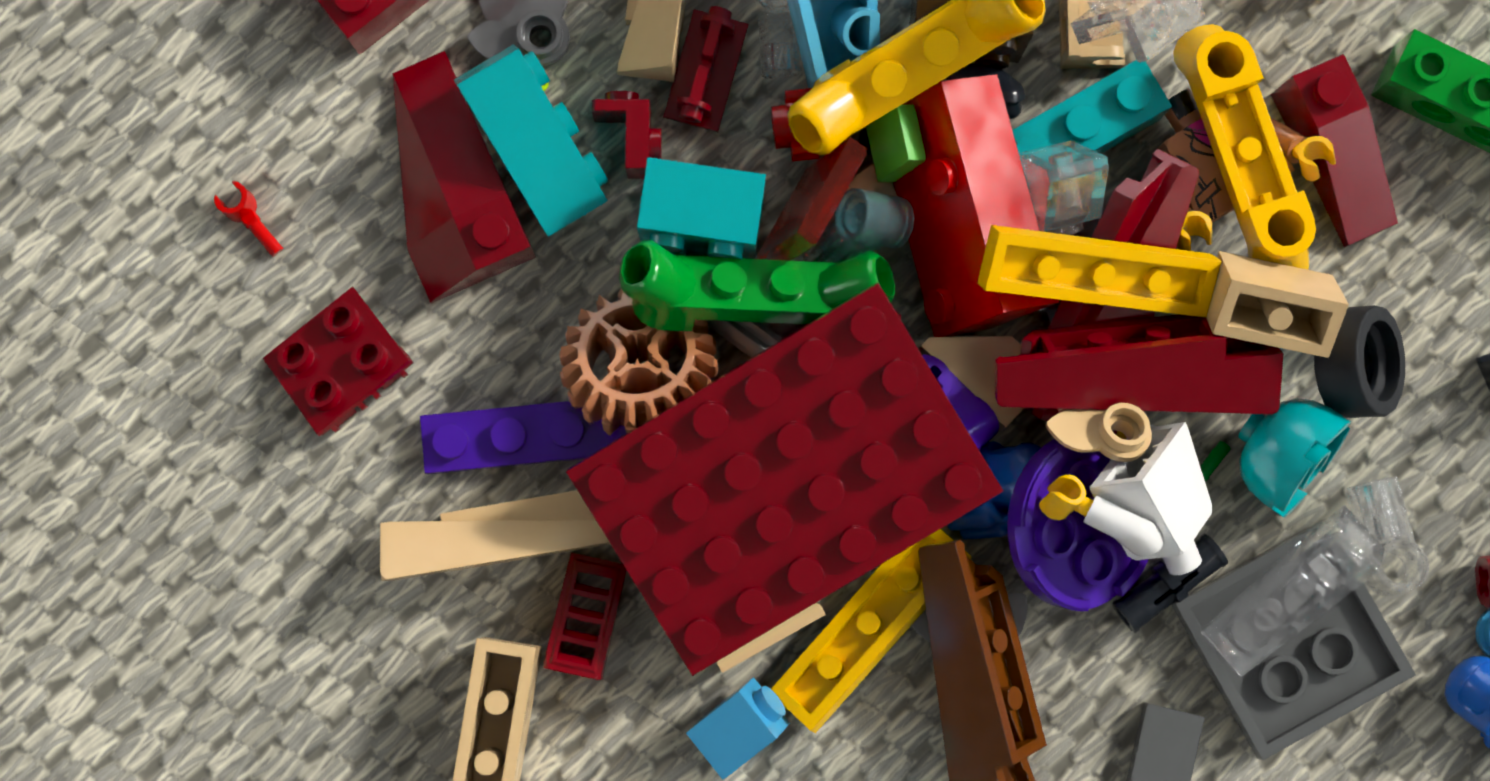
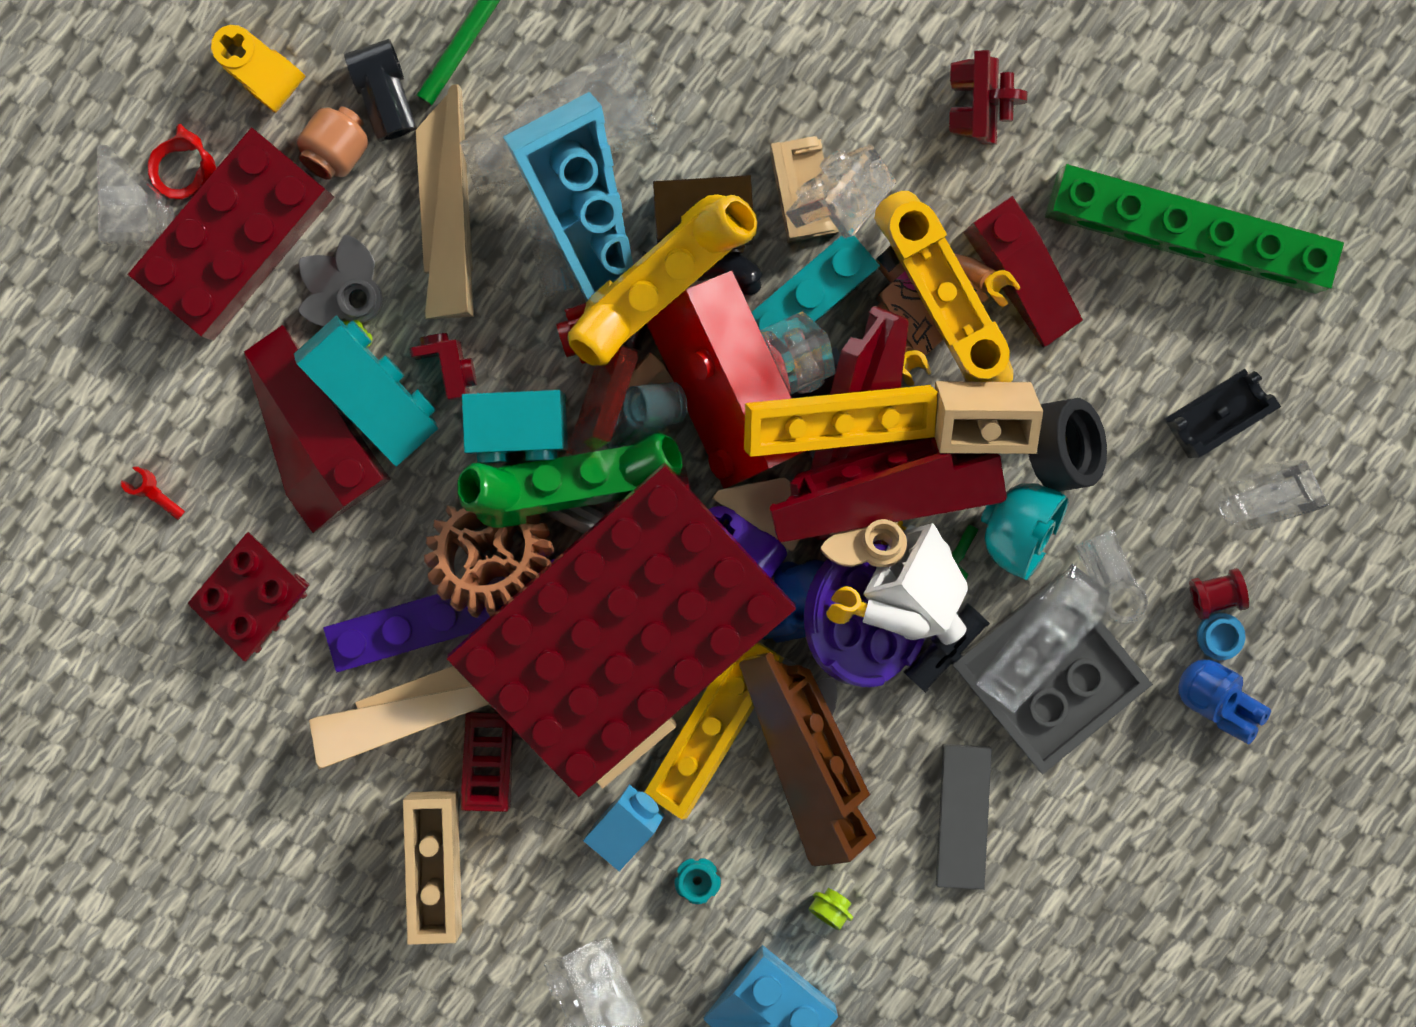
camera: 10 degrees left, 5 degrees up
(706, 69) = (498, 300): dark red hinge -> none
(896, 143) = (662, 341): bright green tile -> none

